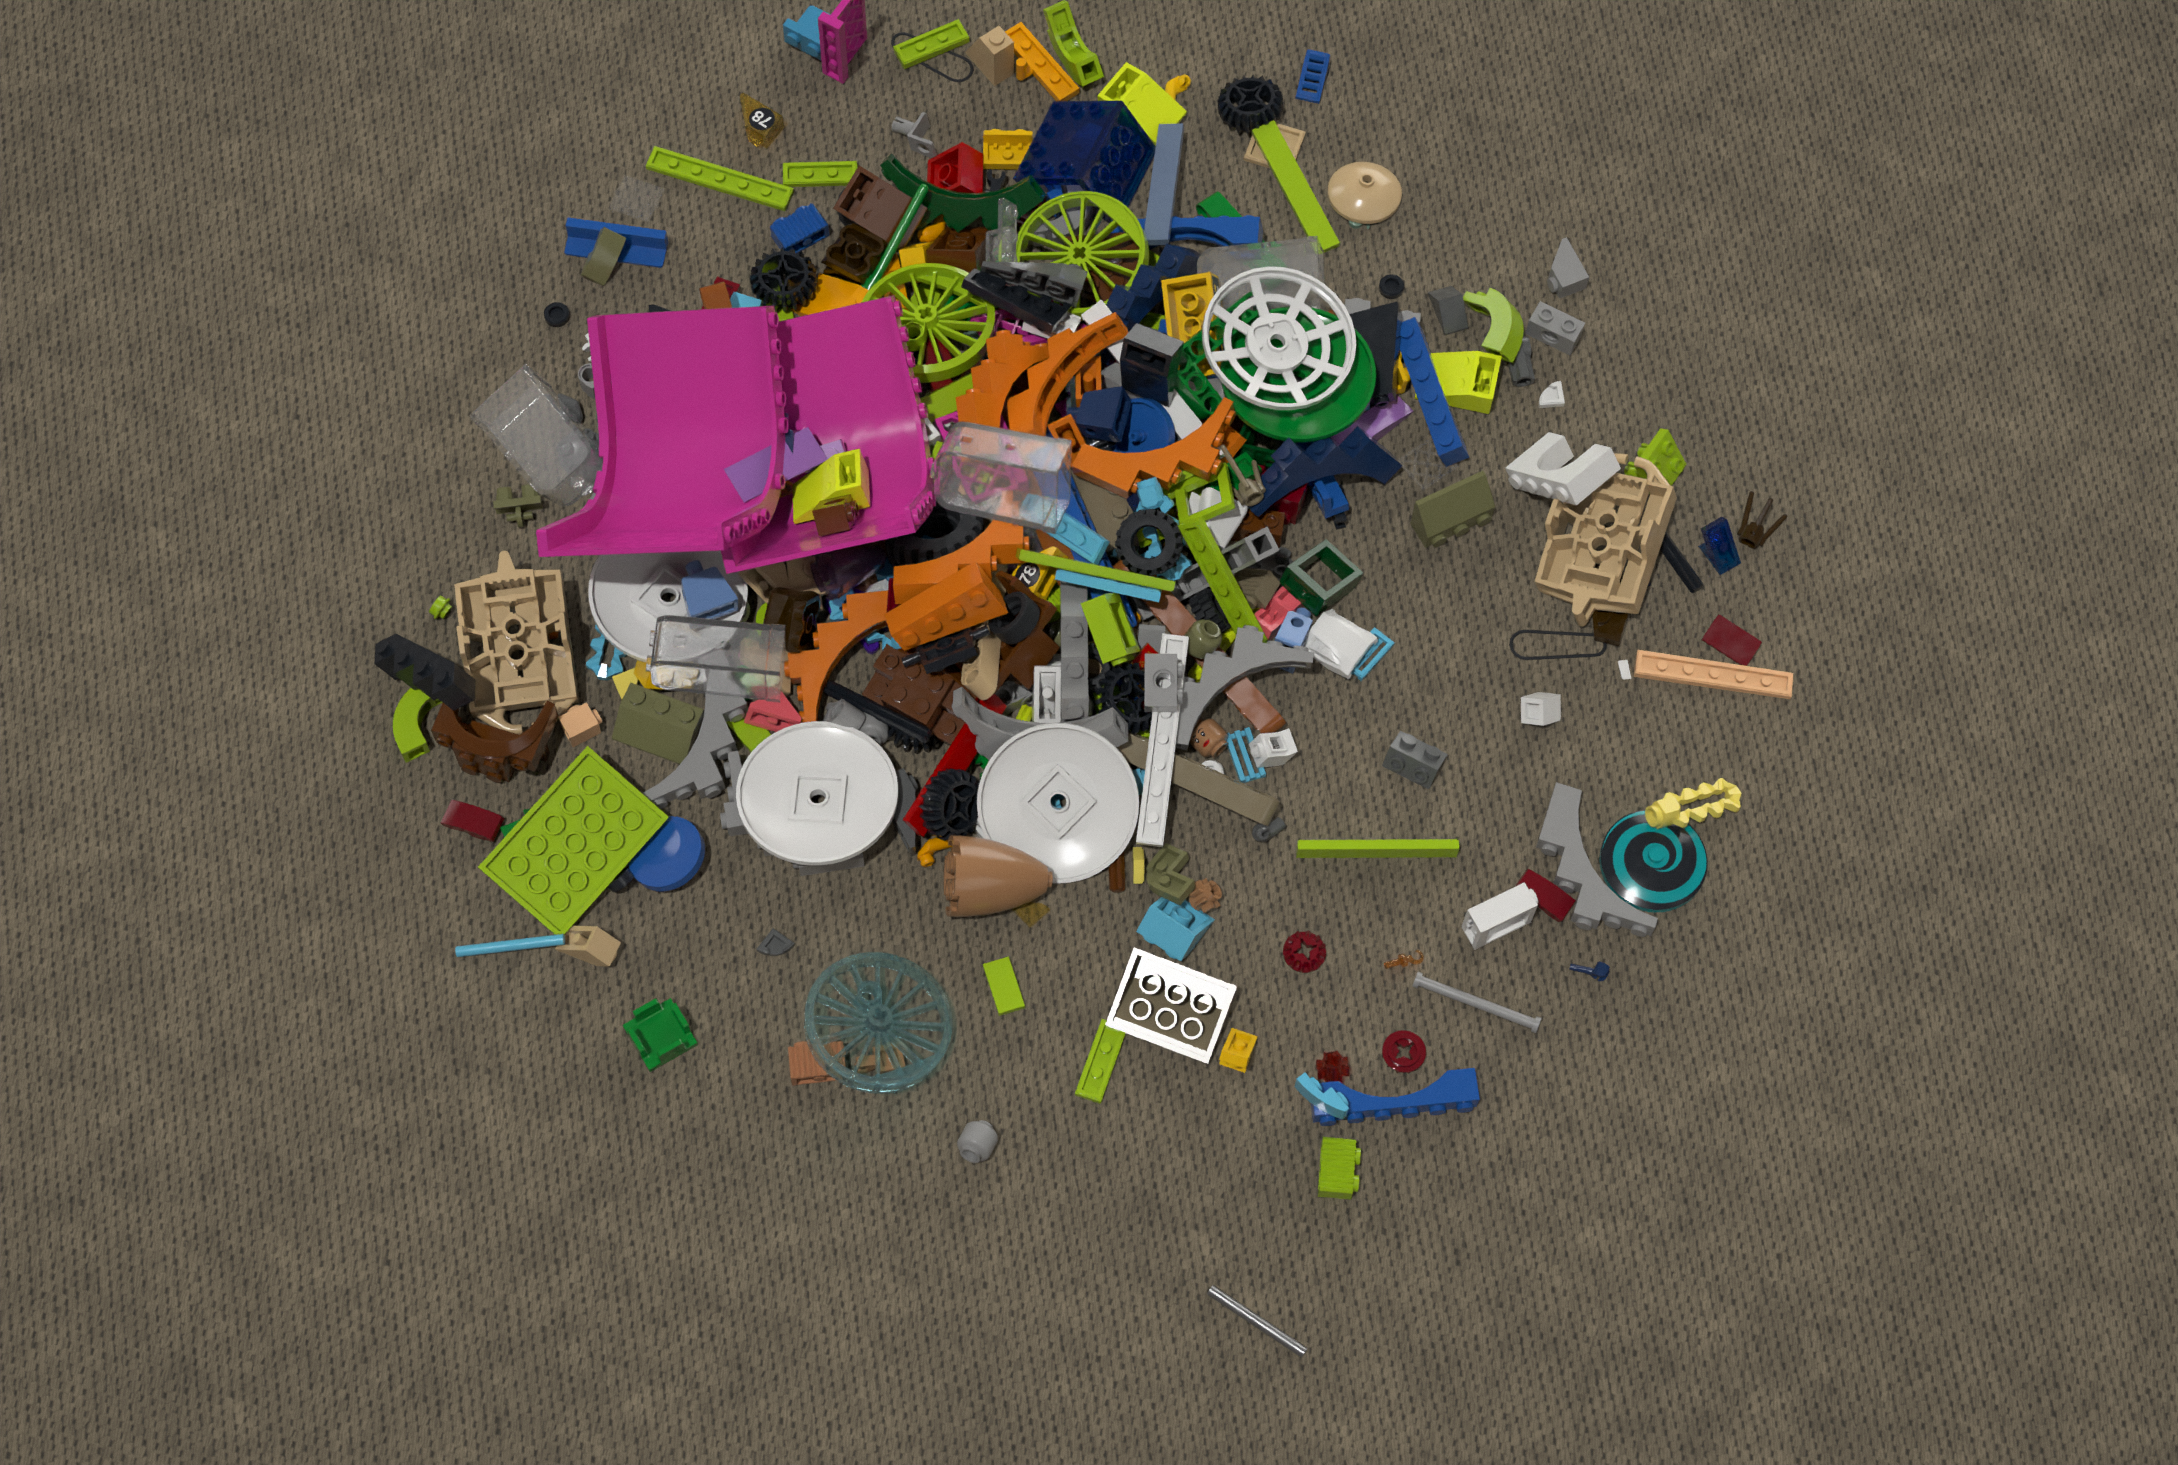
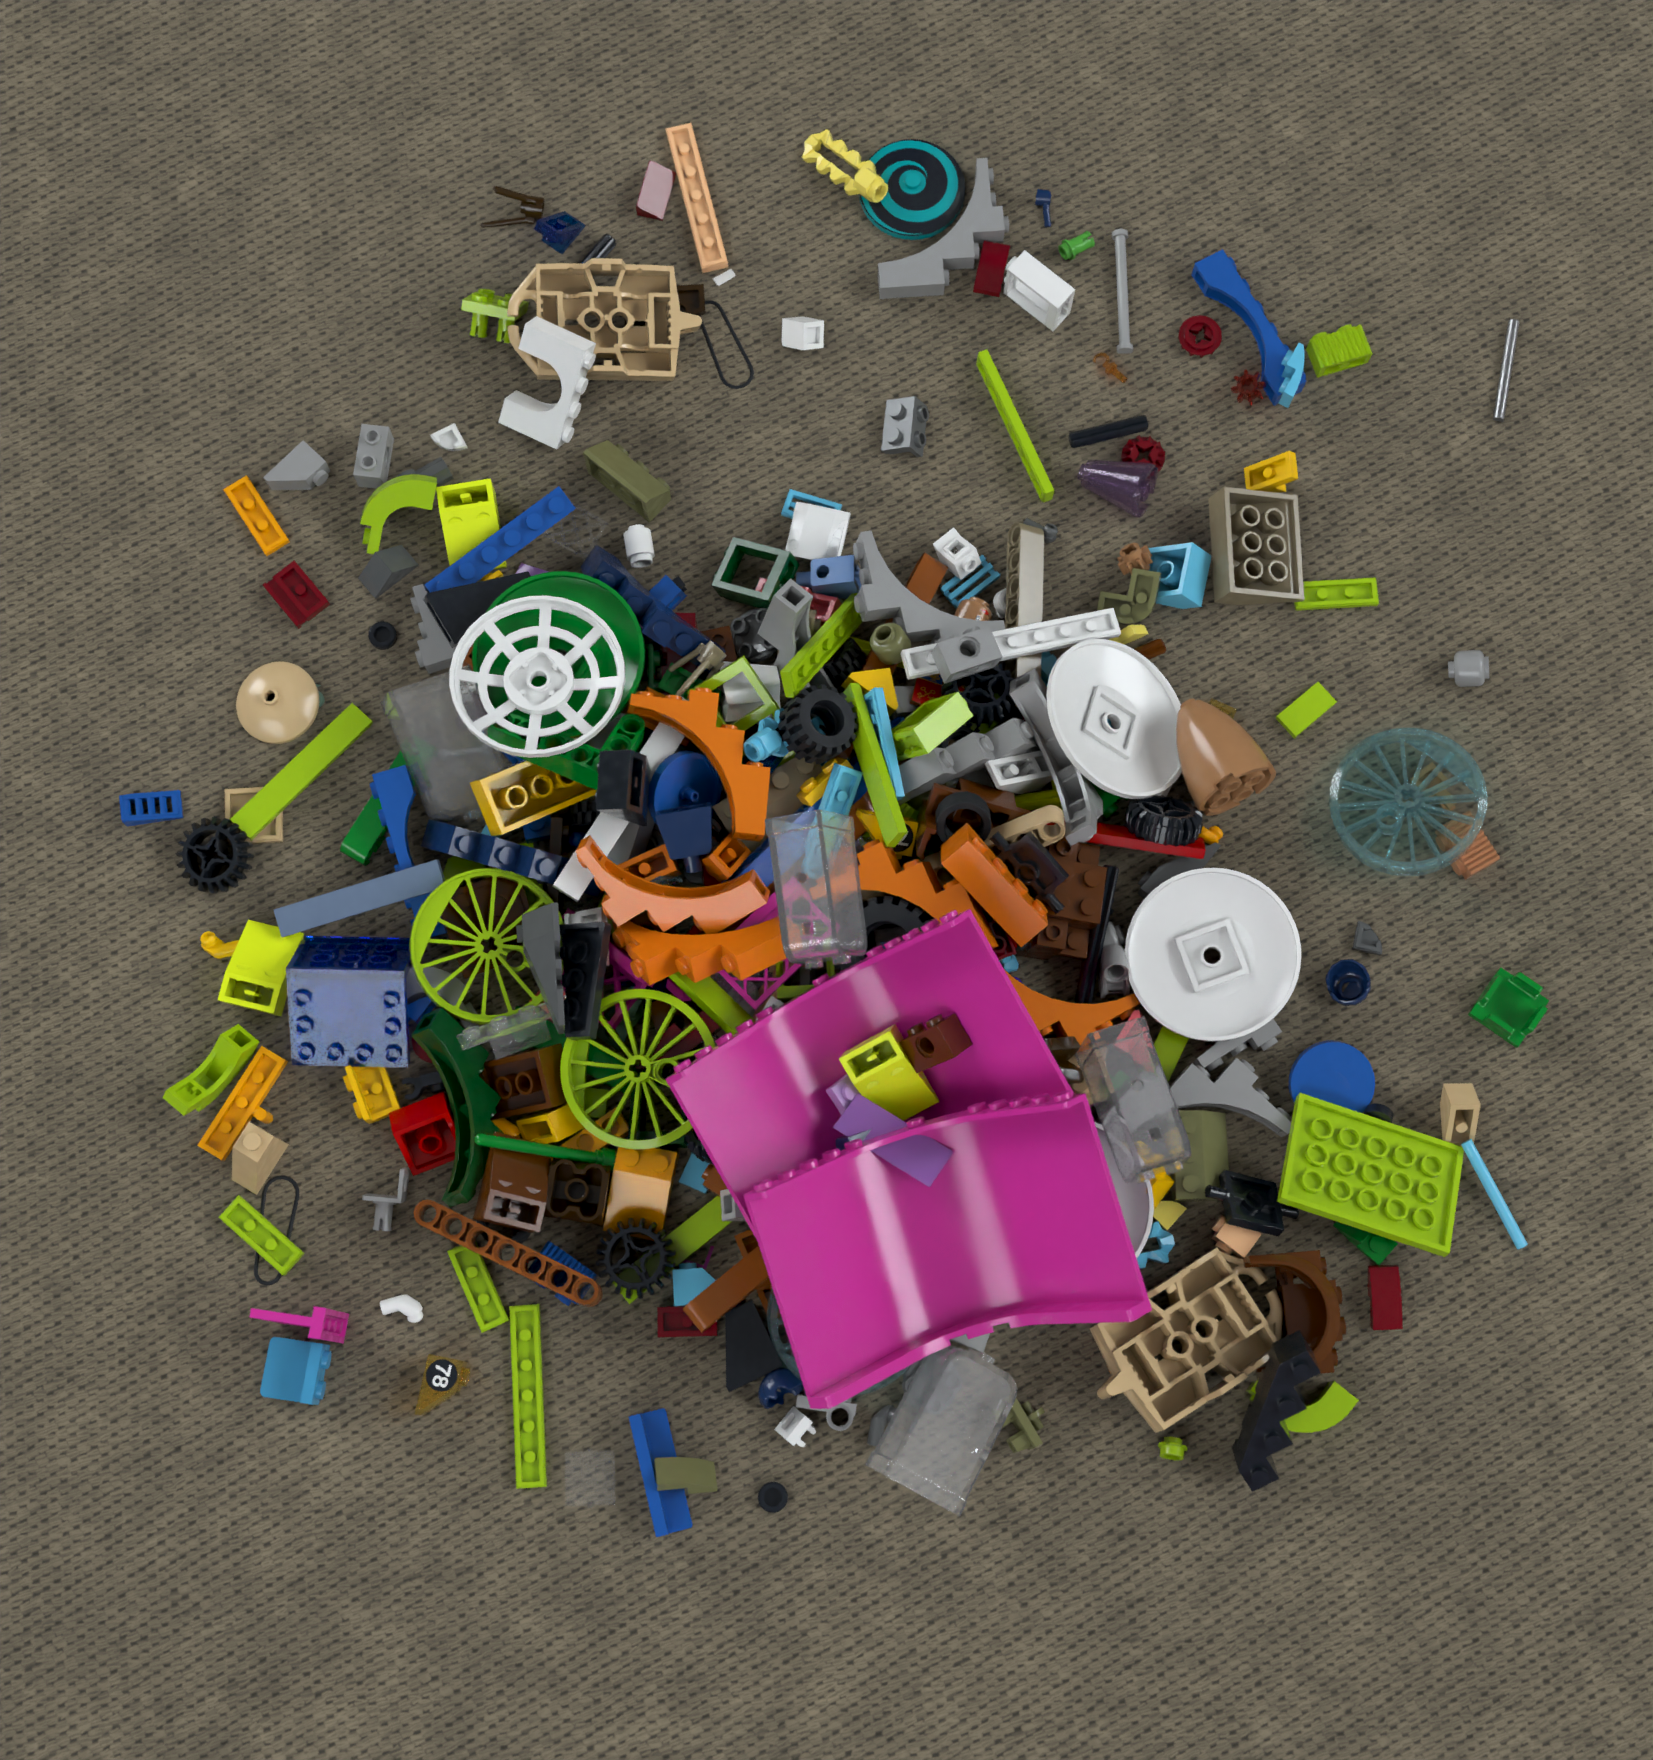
camera: 110 degrees left, 10 degrees up
(602, 733) = (1251, 1203): none -> black plate
(743, 897) = (1348, 971): none -> dark blue hair
(820, 194) = (495, 1246): none -> dark orange beam
(829, 120) = (404, 1304): none -> white arm
(1101, 526) = (815, 787): none -> yellow plate
(1167, 611) = (875, 678): none -> yellow slope
(1280, 913) = (1120, 483): none -> clear purple cone
(1341, 931) = (1108, 431): none -> black axle
(1389, 502) = (639, 546): none -> white brick
(1453, 234) = (296, 594): none -> dark red plate
(1538, 978) = (1072, 247): none -> bright green pin
(1539, 230) = (256, 515): none -> light orange tile

